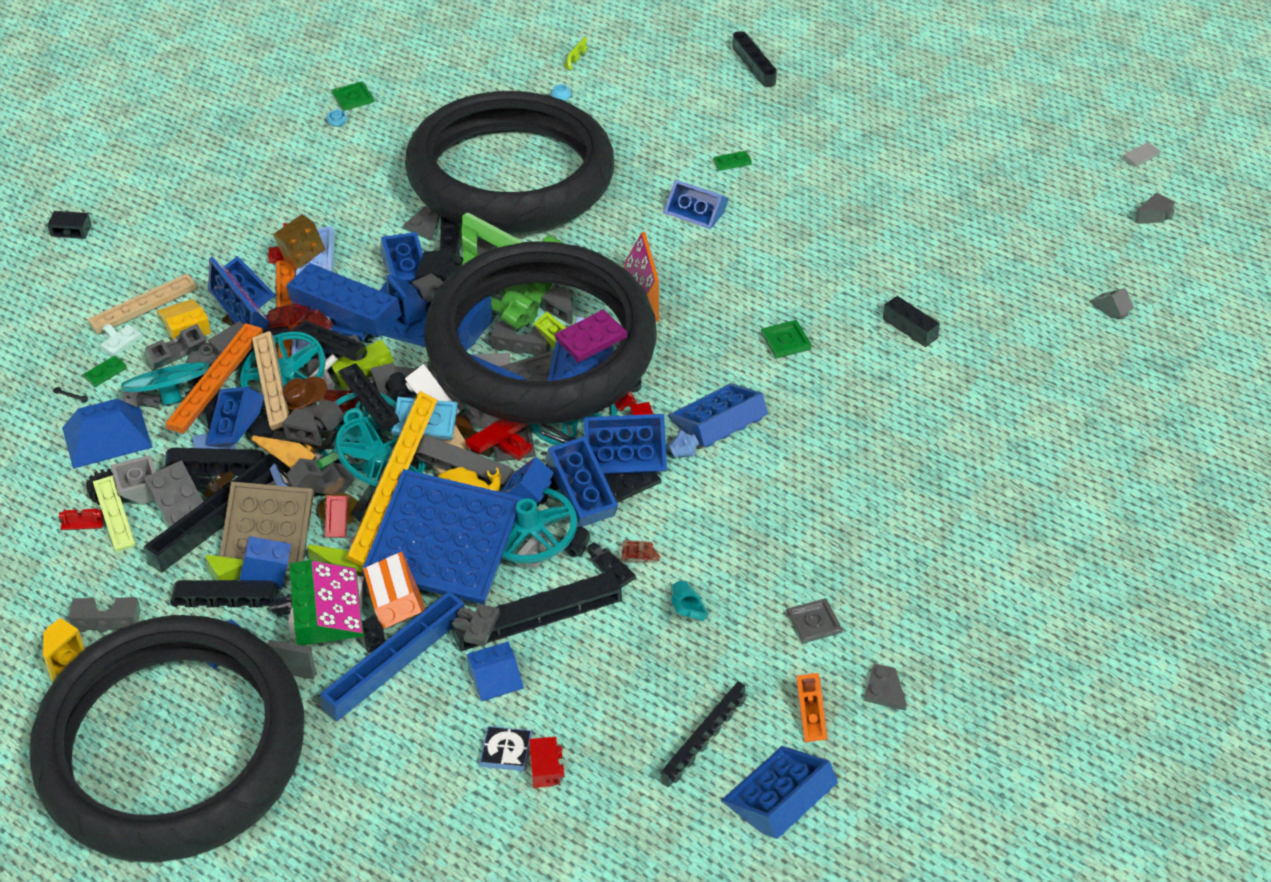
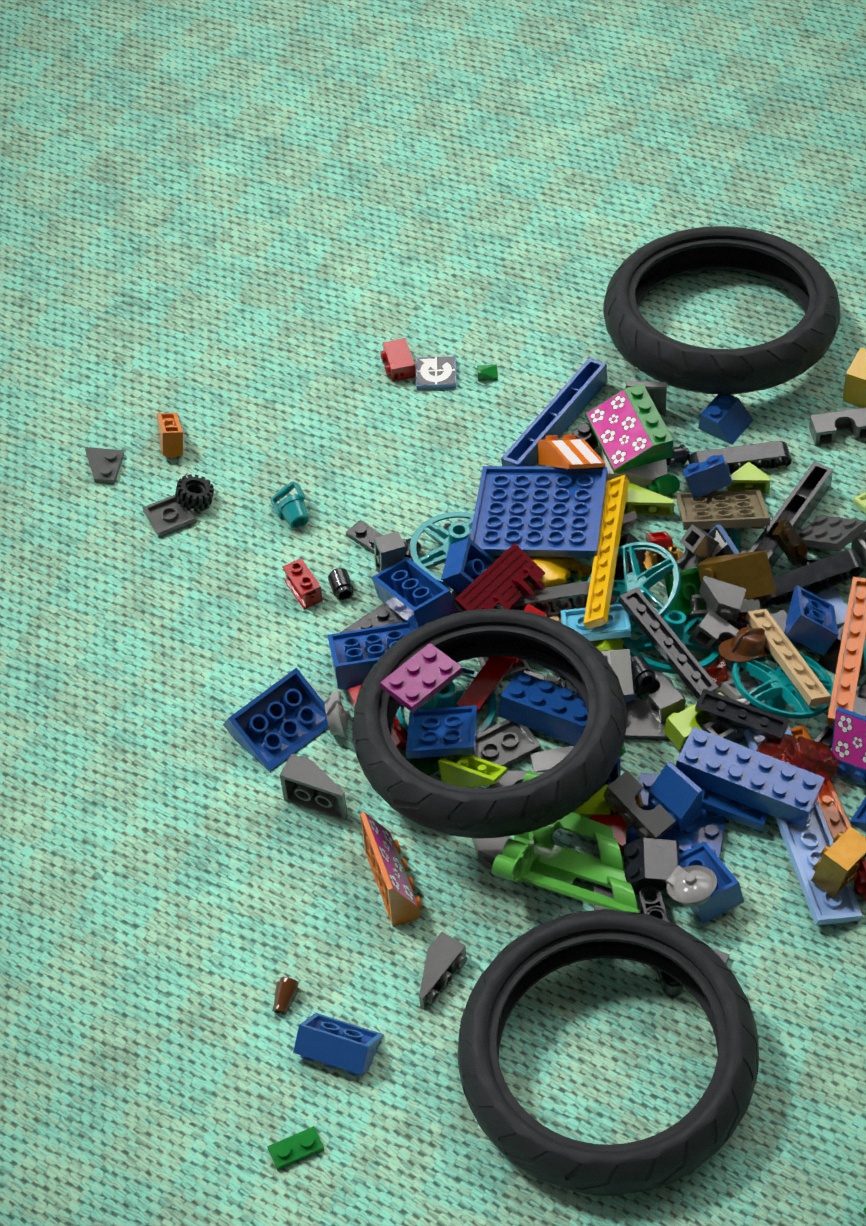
camera: 175 degrees right, 5 degrees up
(417, 235) = (691, 885): none -> light grey piece
(449, 741) = (487, 372): none -> green slope
(481, 623) = (484, 444): dark grey hinge -> none
(494, 671) = (462, 427): blue slope -> none
(506, 457) = (500, 581): none -> dark red hinge
(550, 607) = (429, 483): black brick -> none
(596, 525) = (389, 550): none -> dark grey slope
(613, 239) = (441, 962): none -> dark grey slope
(639, 552) = (345, 550): clear red slope -> none
(647, 522) = (341, 583): none -> black brick
(667, 398) = (336, 715): none -> light grey piece
(684, 445) = (314, 670): medium blue rock -> none
(684, 522) = (302, 584): none -> red hinge
(695, 346) = (310, 787): none -> dark grey slope
(699, 739) = (264, 399): black plate -> none
(730, 236) = (285, 993): none -> reddish brown cone
(781, 790) = (196, 366): blue slope -> none
(782, 620) = (193, 500): none -> black tyre
(786, 339) = (206, 835): green plate -> none
(911, 321) = (53, 874): black brick -> none

